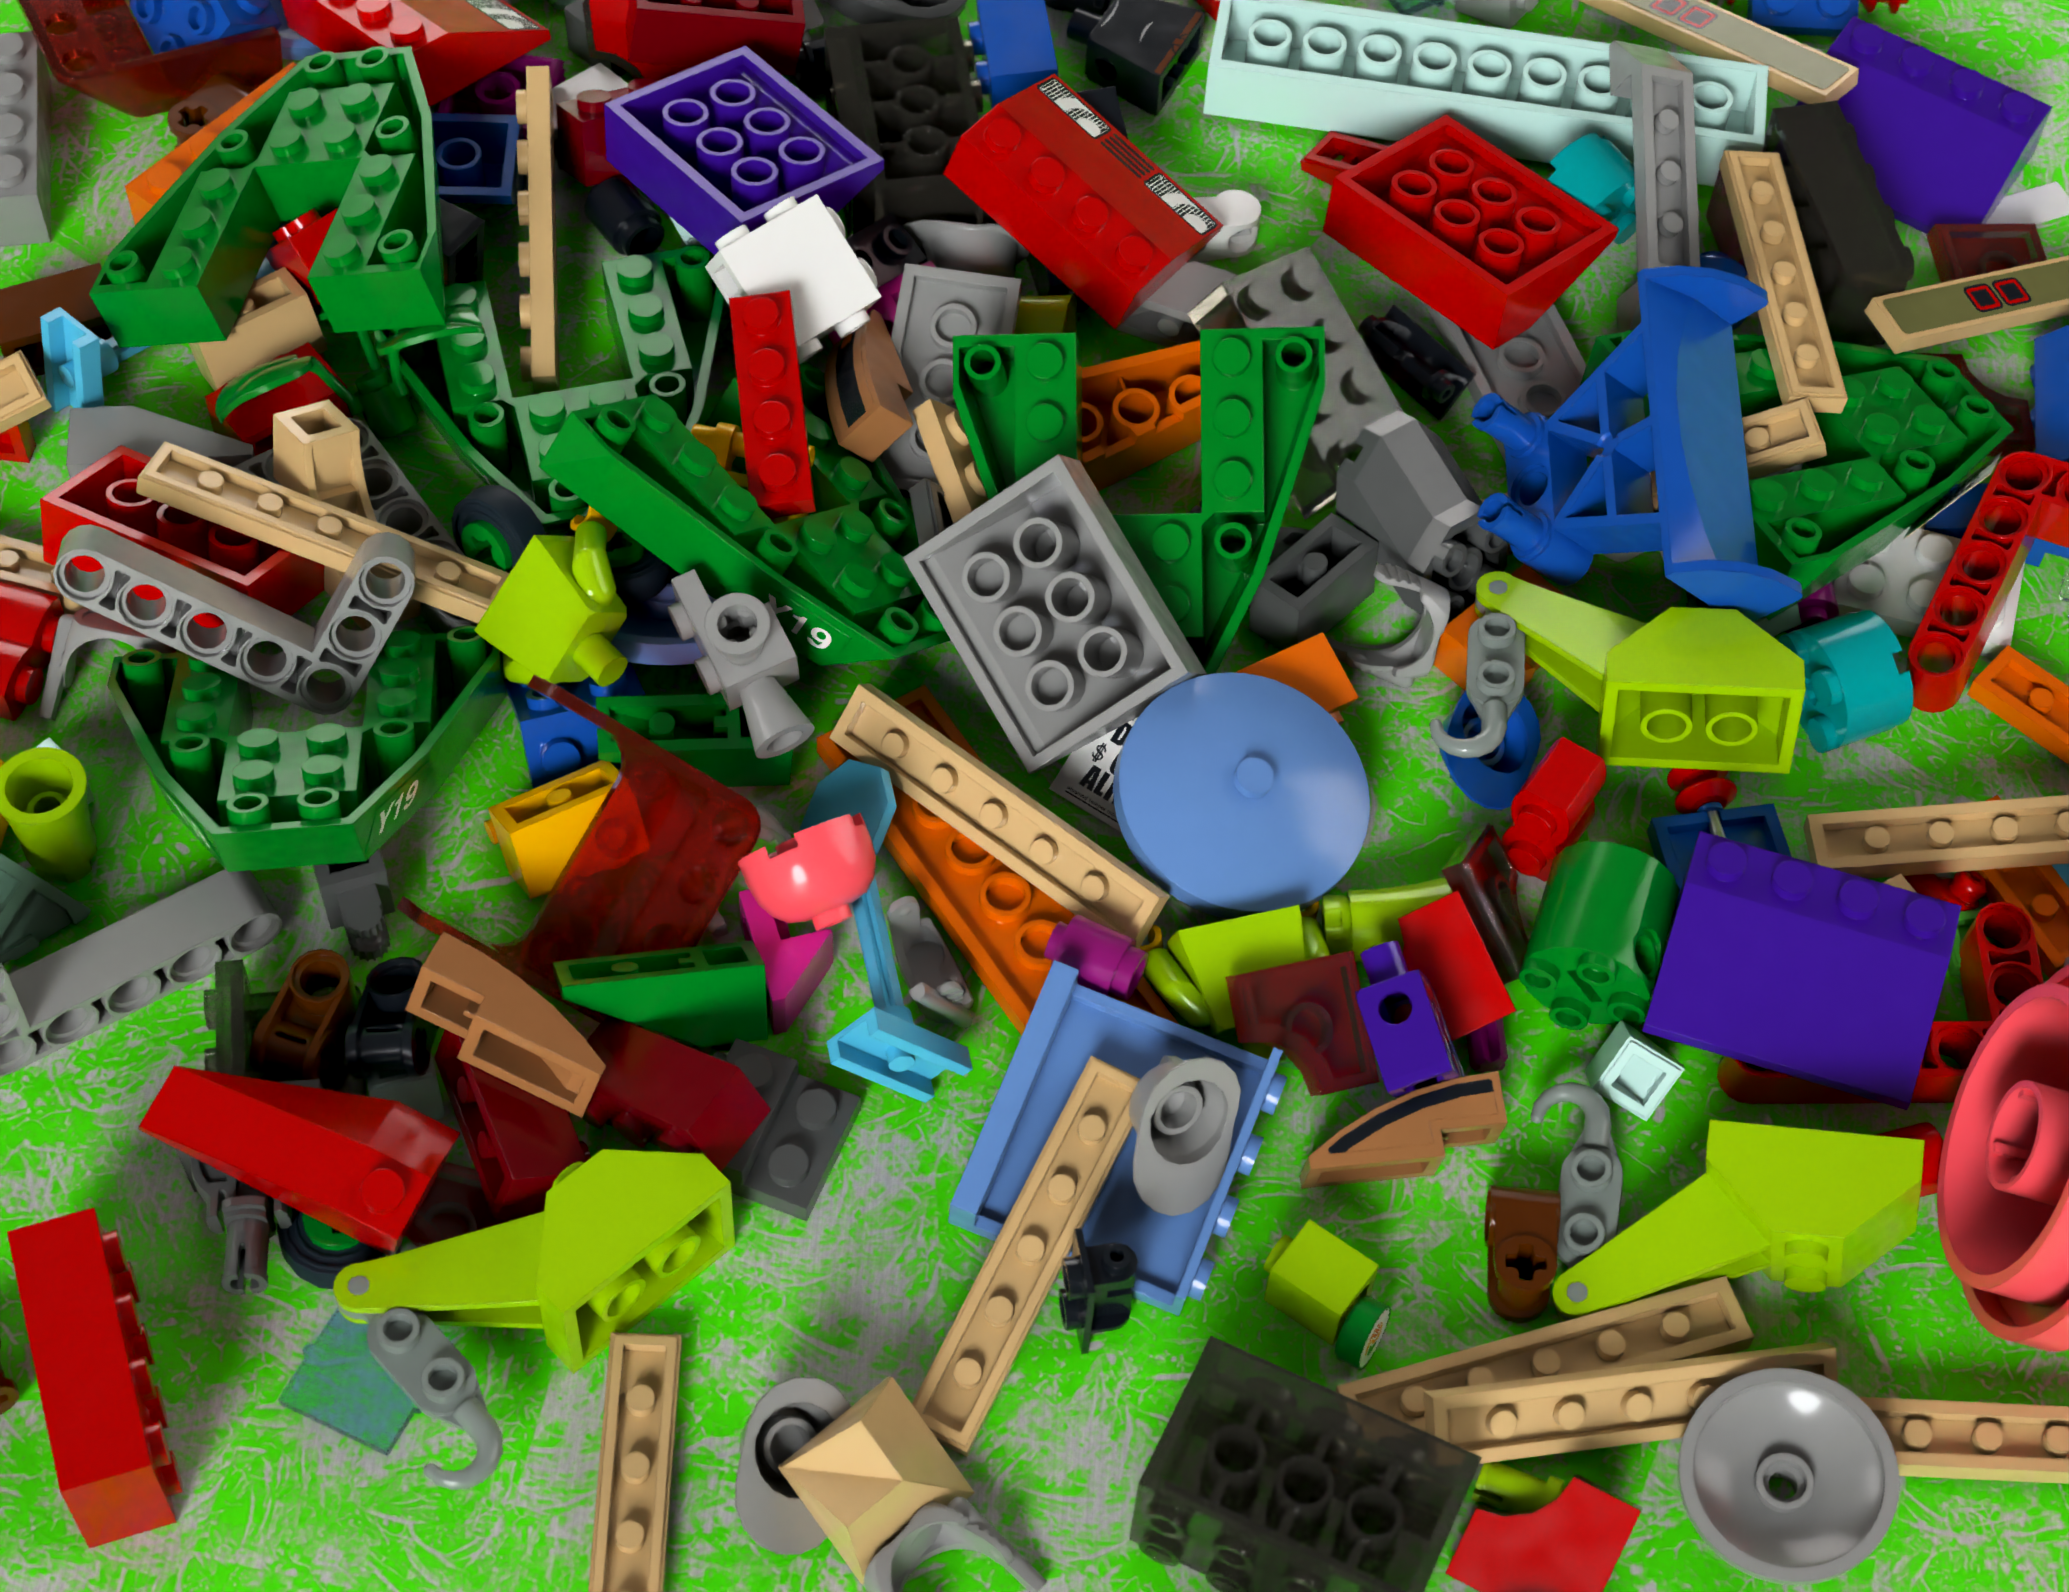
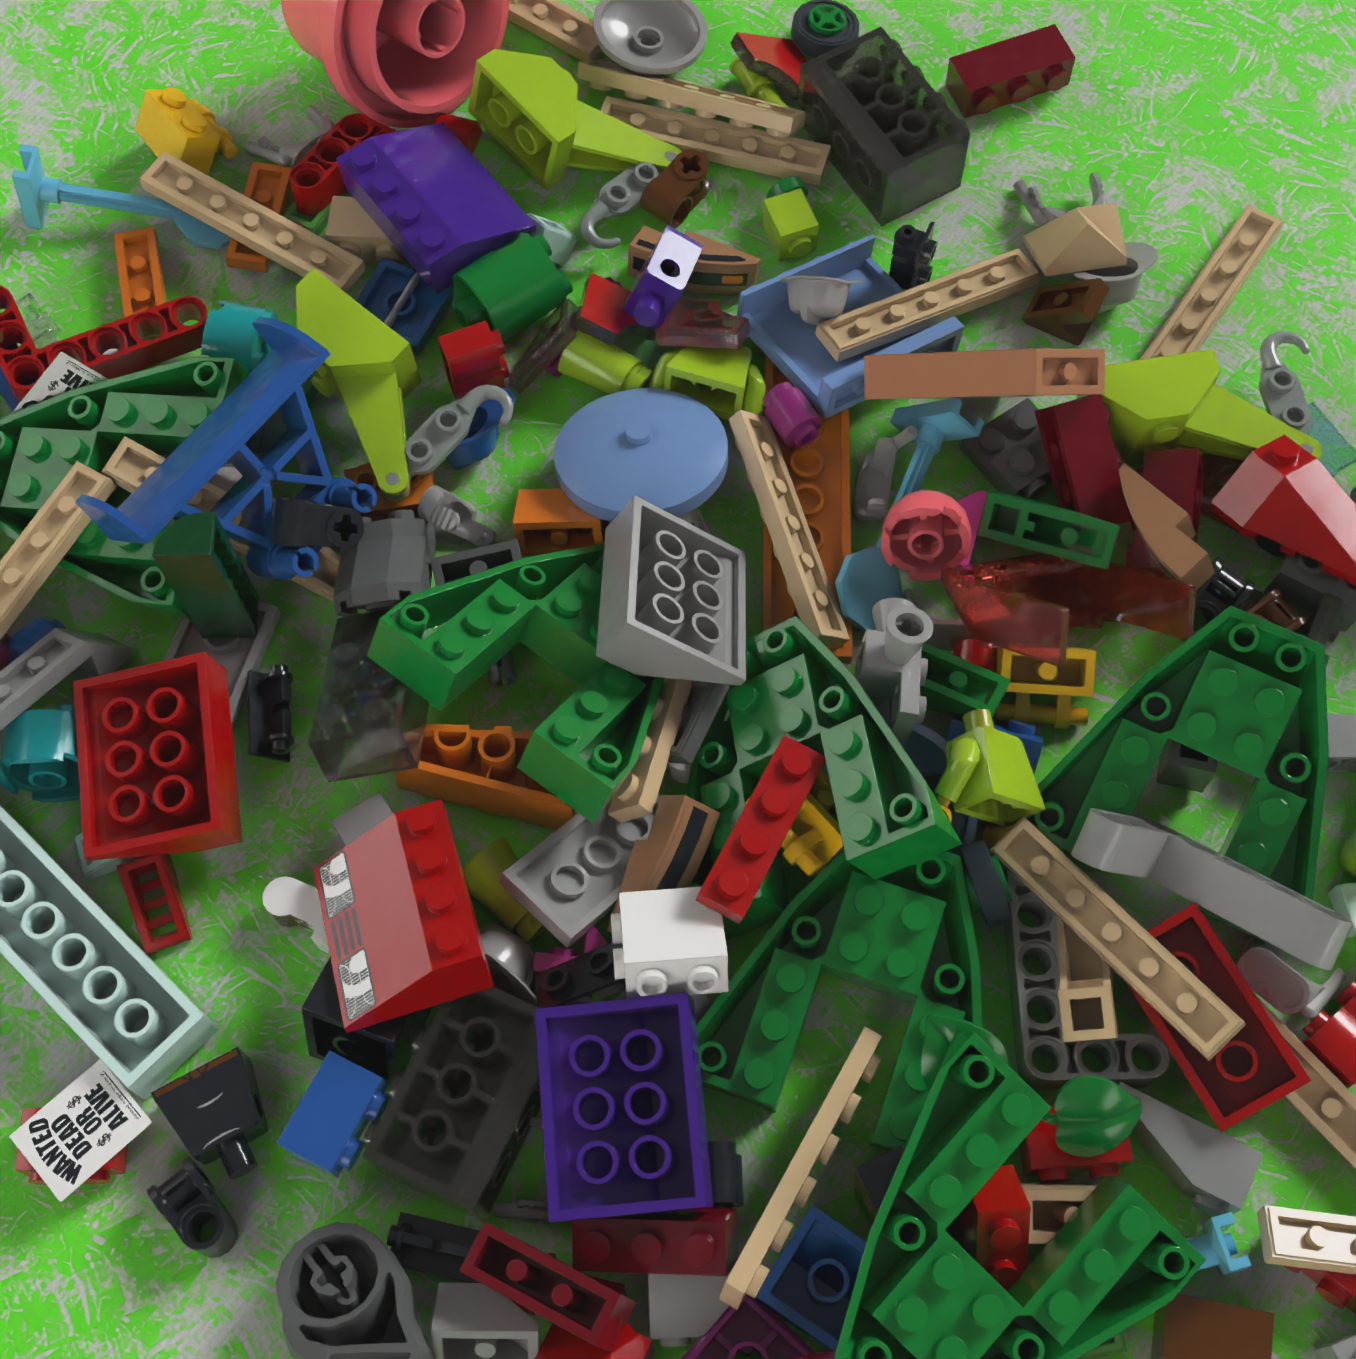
camera: 140 degrees left, 10 degrees up
(828, 1351) = (1066, 308): none -> reddish brown slope
(856, 1087) = (985, 374): none -> nougat slope
(1520, 453) = (311, 524): none -> black piece
(1561, 321) = (208, 577): none -> dark green brick

